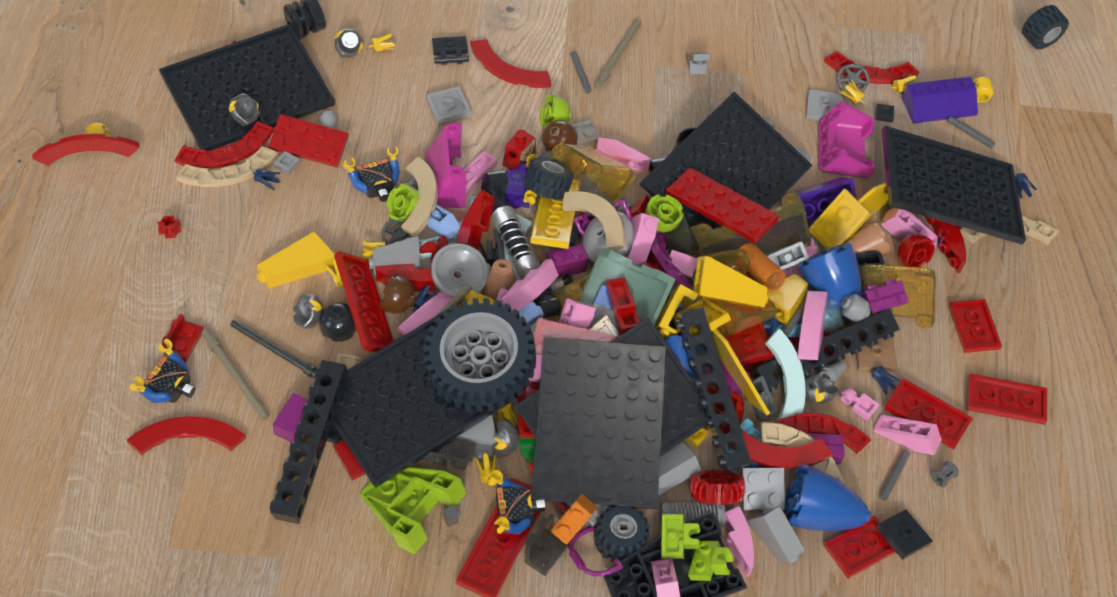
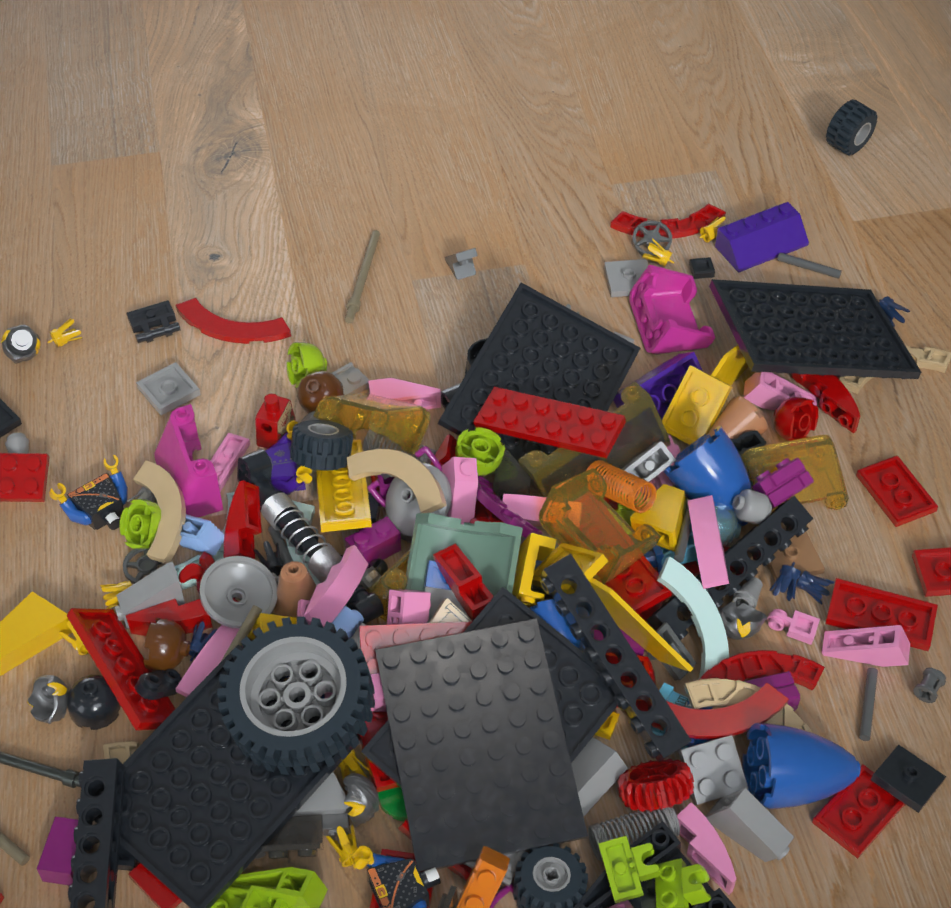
camera: 10 degrees left, 5 degrees down
(386, 321) = (158, 684): none -> black plate
(580, 71) = (323, 309): dark grey bar -> none
(724, 284) = (583, 518): yellow slope -> none
(867, 366) = (787, 579): none -> dark blue piece
(984, 88) = (808, 212): yellow head -> none

